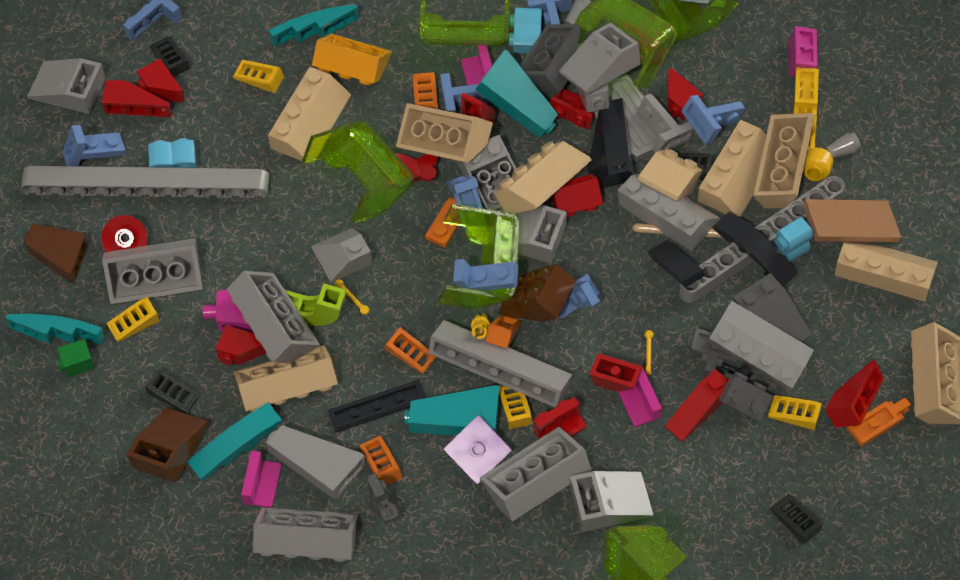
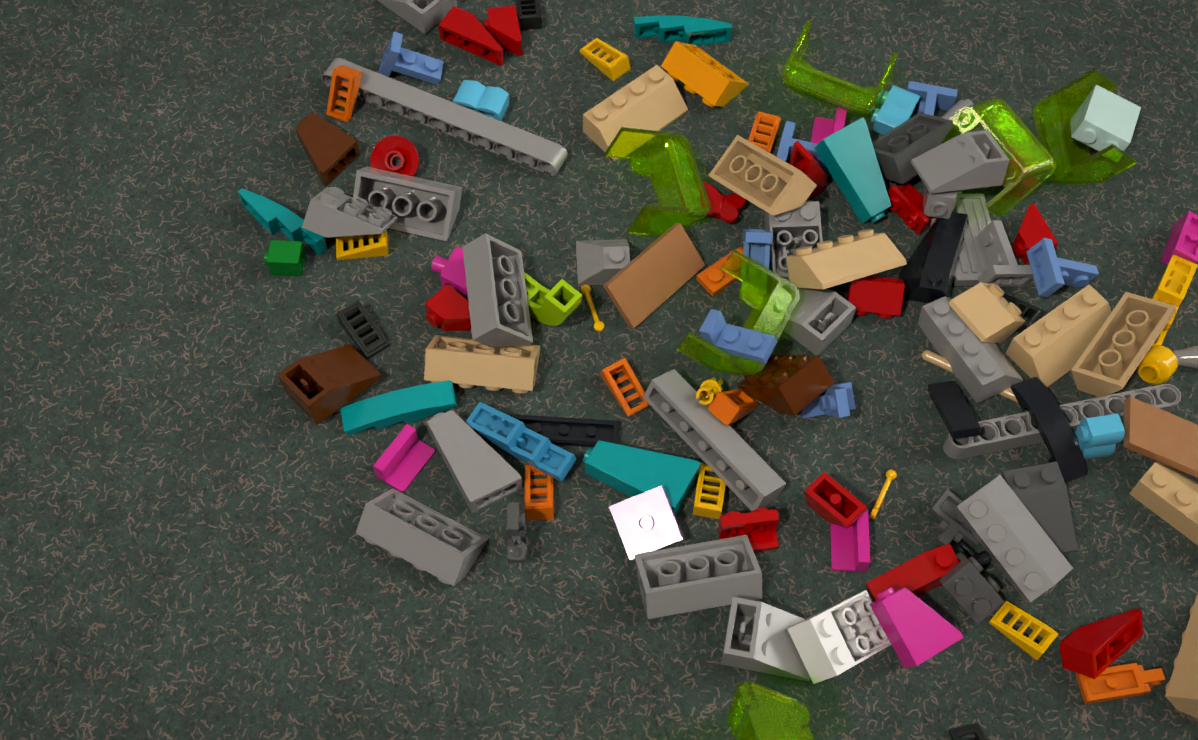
camera: 20 degrees right, 0 degrees up
(49, 181) = (335, 89): none -> orange slope
(112, 302) = (338, 215): none -> light grey slope
(348, 428) = (520, 441): none -> dark azure slope
(391, 249) = (654, 275): none -> medium nougat tile
(662, 473) = (838, 637): none -> white slope
(712, 442) = (912, 626): none -> dark pink slope

